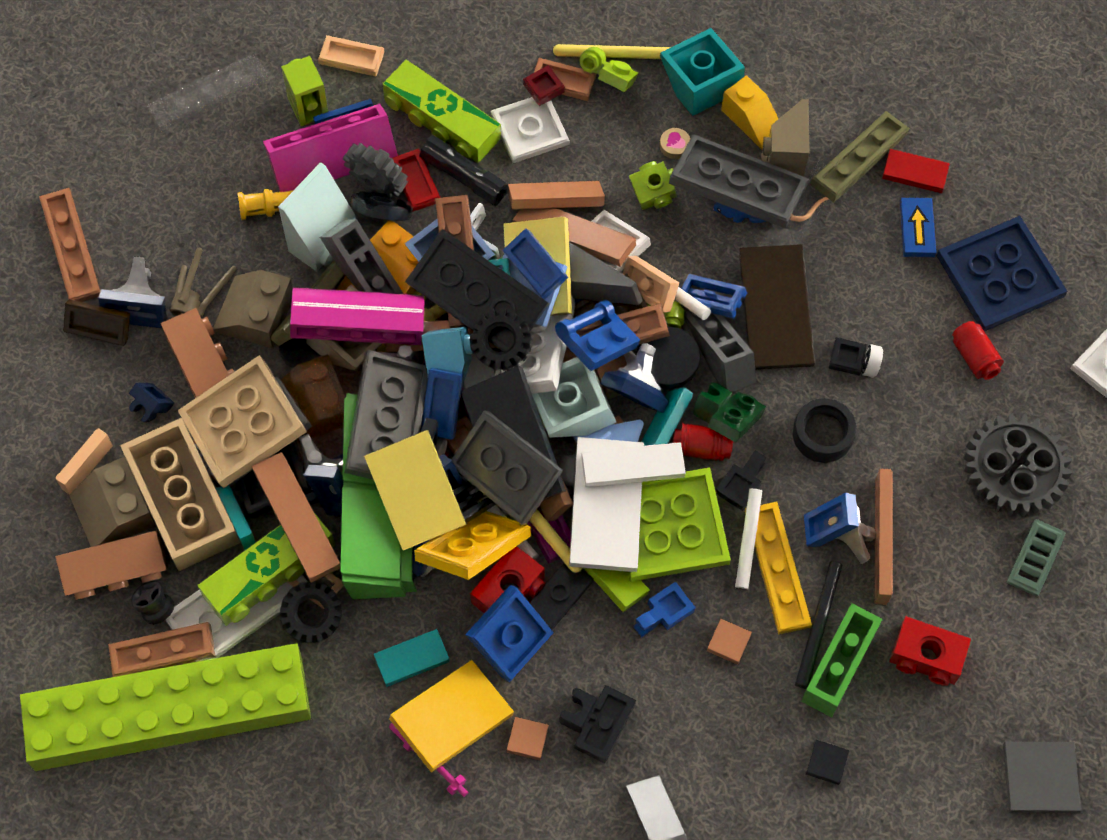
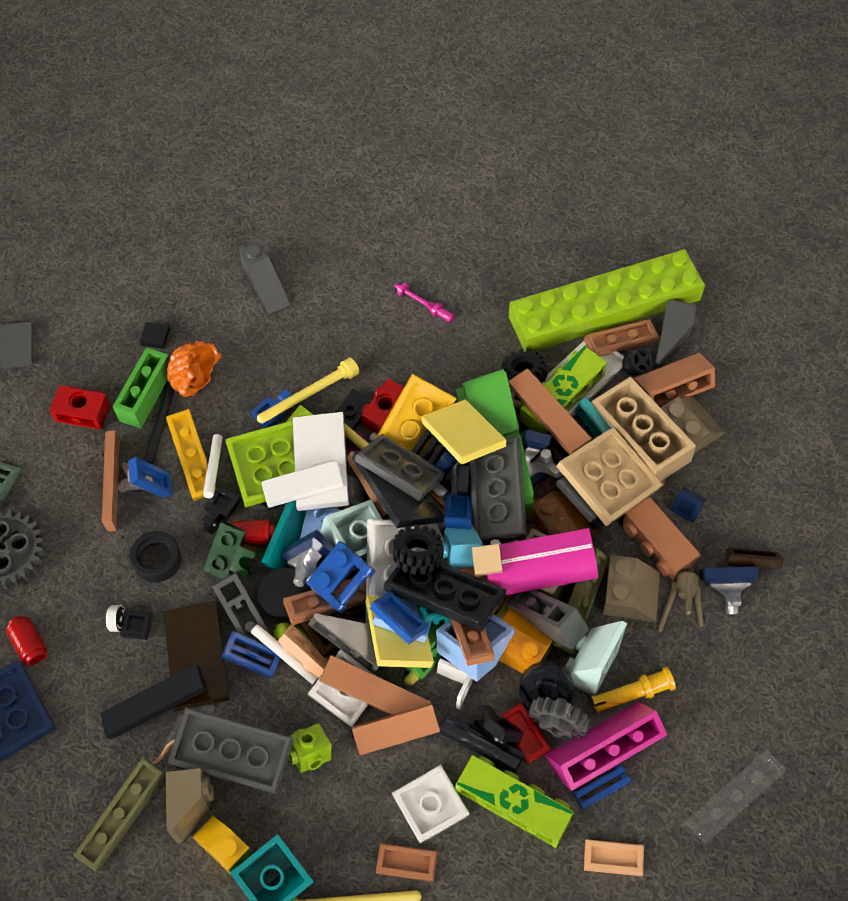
camera: 175 degrees right, 5 degrees down
(70, 245) = (802, 628): nougat tile -> none
(84, 461) = (722, 450): light nougat tile -> none
(86, 644) = (676, 329): none -> dark grey slope
(304, 89) = (644, 791): lime brick -> none
(411, 657) = (448, 359): teal tile -> none
(420, 309) = (487, 560): none -> tan tile
(440, 173) = (500, 728): none -> black plate
(451, 715) = (413, 323): yellow tile -> none
(509, 633) = (381, 372): blue tile -> none
(527, 738) = (359, 322): nougat tile -> none
(543, 85) = (423, 843): dark red tile -> none
(558, 656) = (347, 369): none -> light yellow piece
(598, 721) = (313, 335): black plate -> none
(613, 73) = (356, 870): lime plate -> none
(674, 142) = (294, 807): tan tile -> none
(729, 641) = (225, 399): nougat tile -> none
(777, 681) = (191, 367): none -> orange hair
(824, 253) = (153, 701): none -> black tile
(916, 171) = (69, 811): red tile -> none
(917, 227) = (70, 753): blue tile -> none

